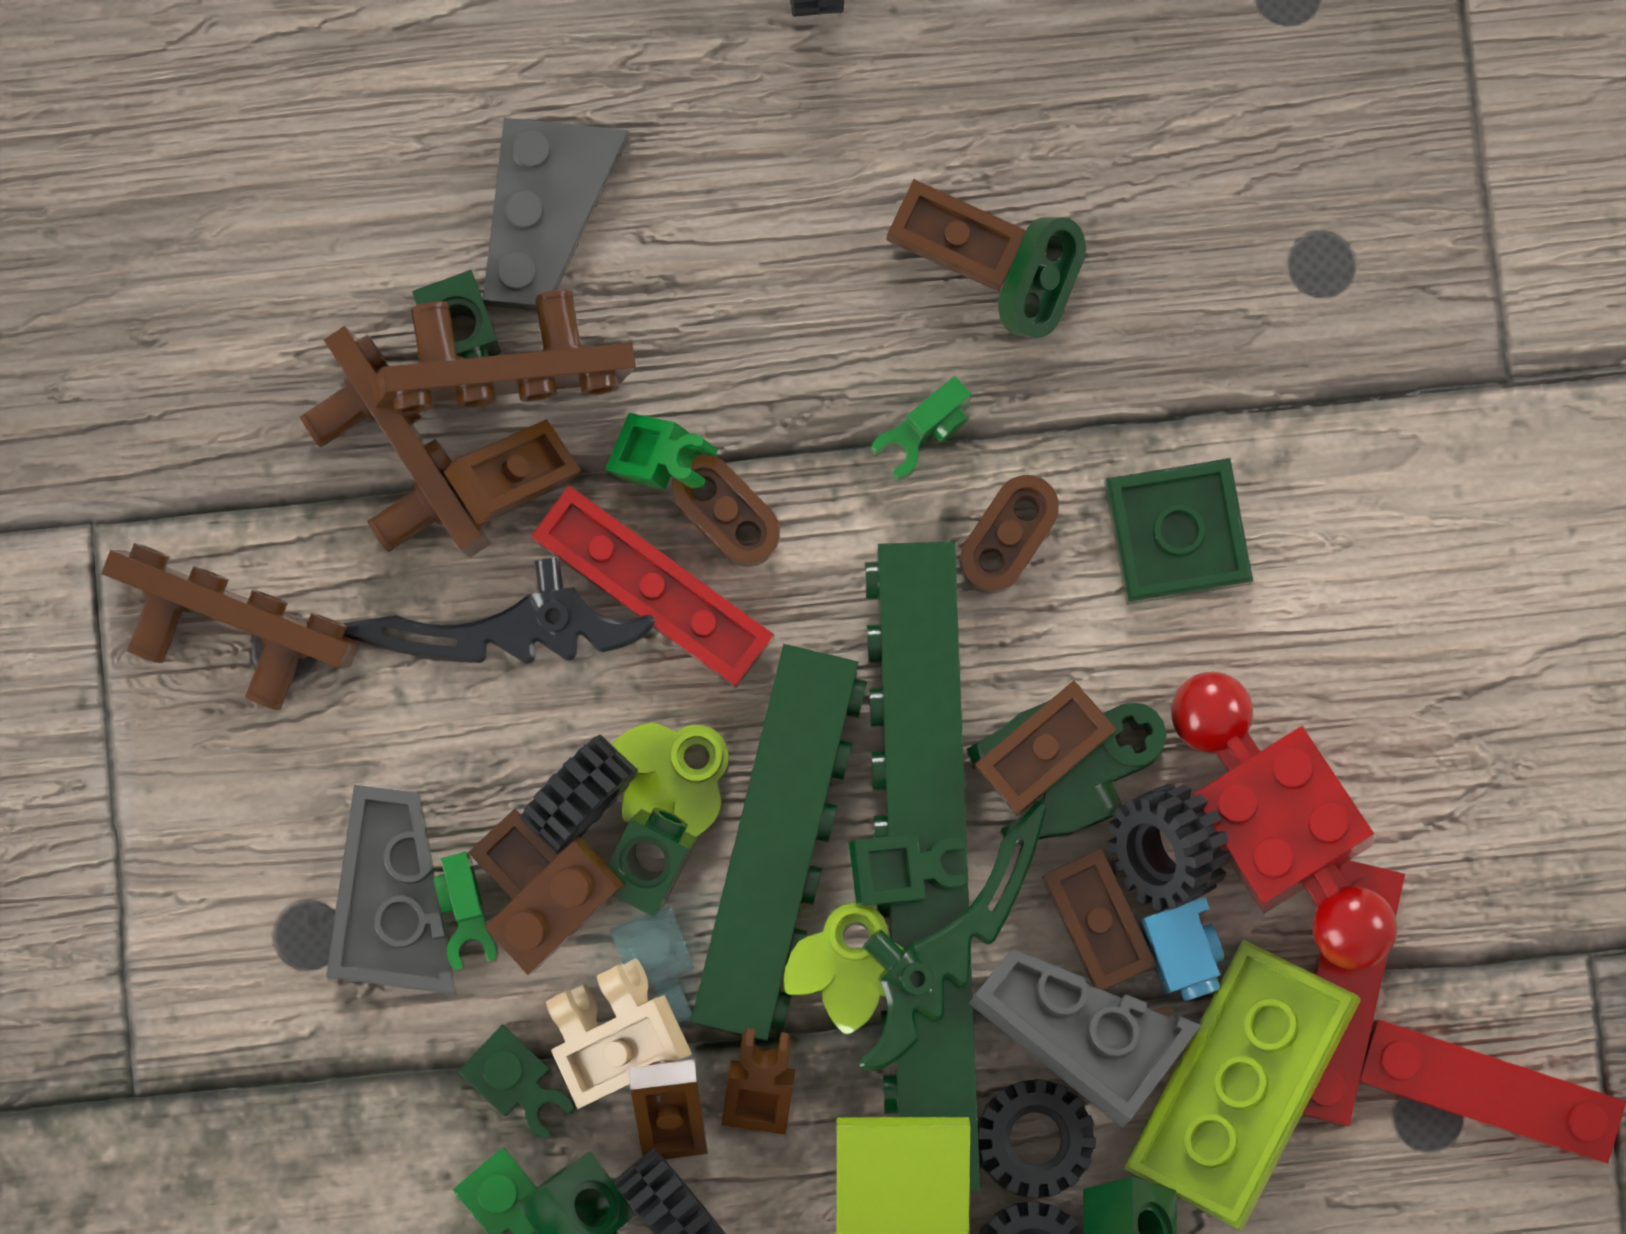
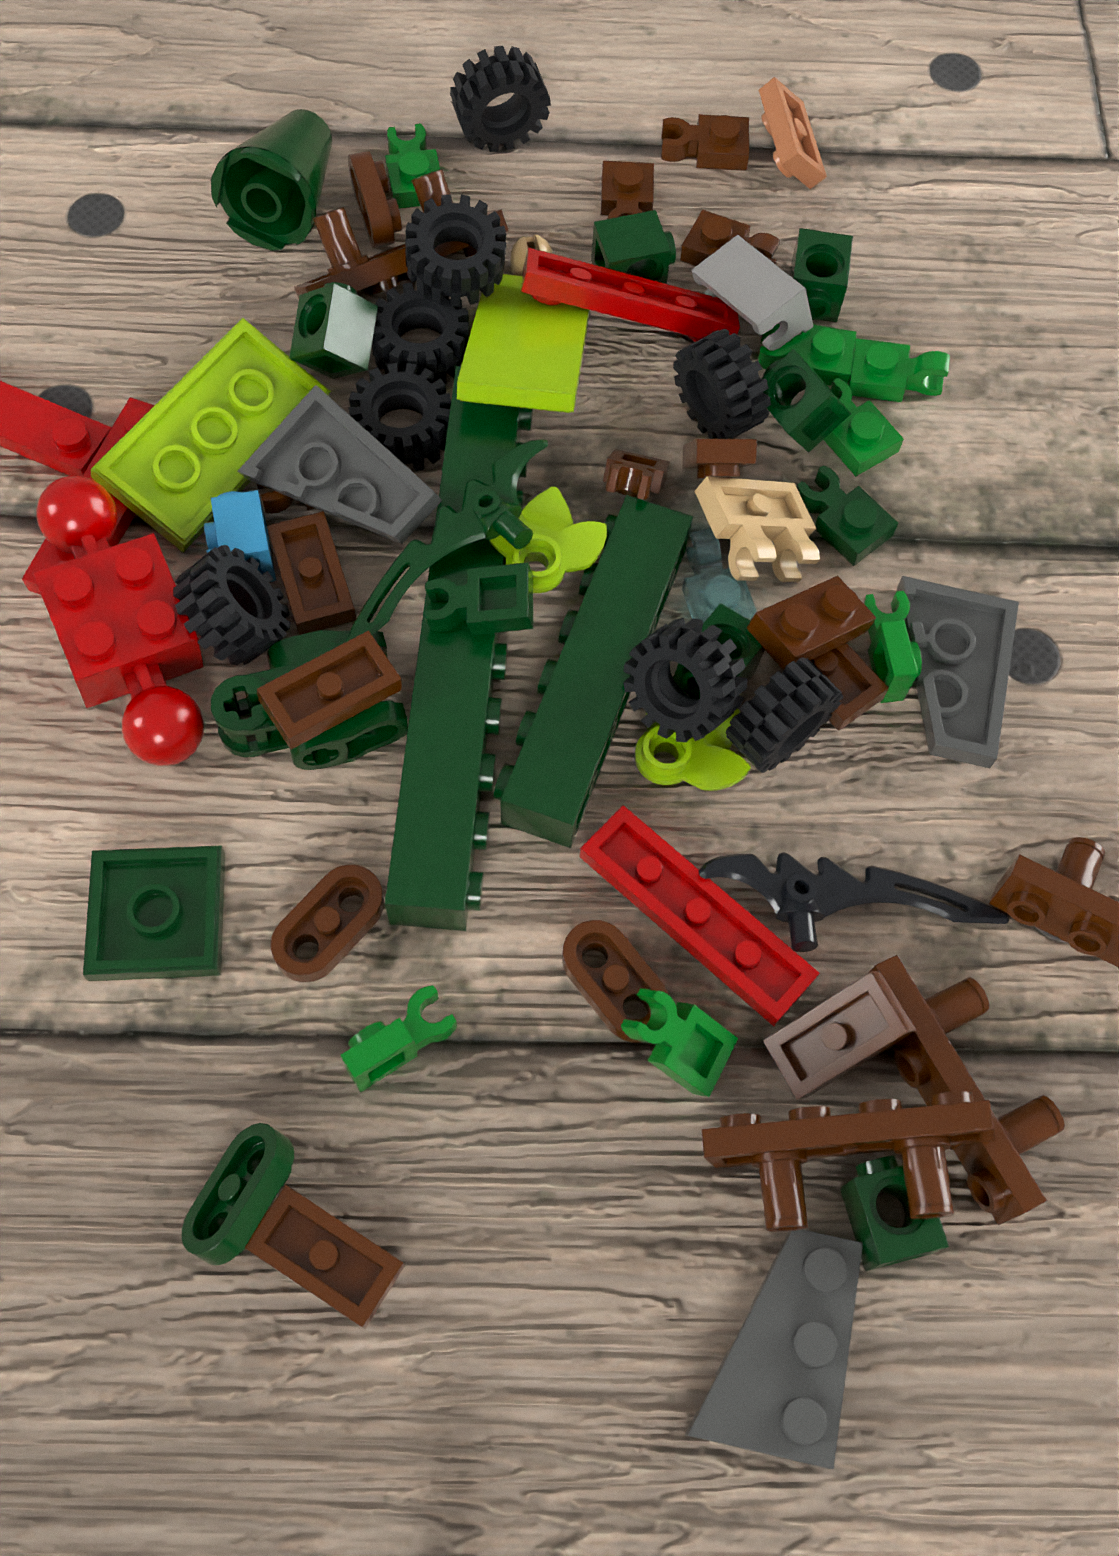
camera: 175 degrees left, 15 degrees down
(685, 804) = (708, 664): none -> black tyre

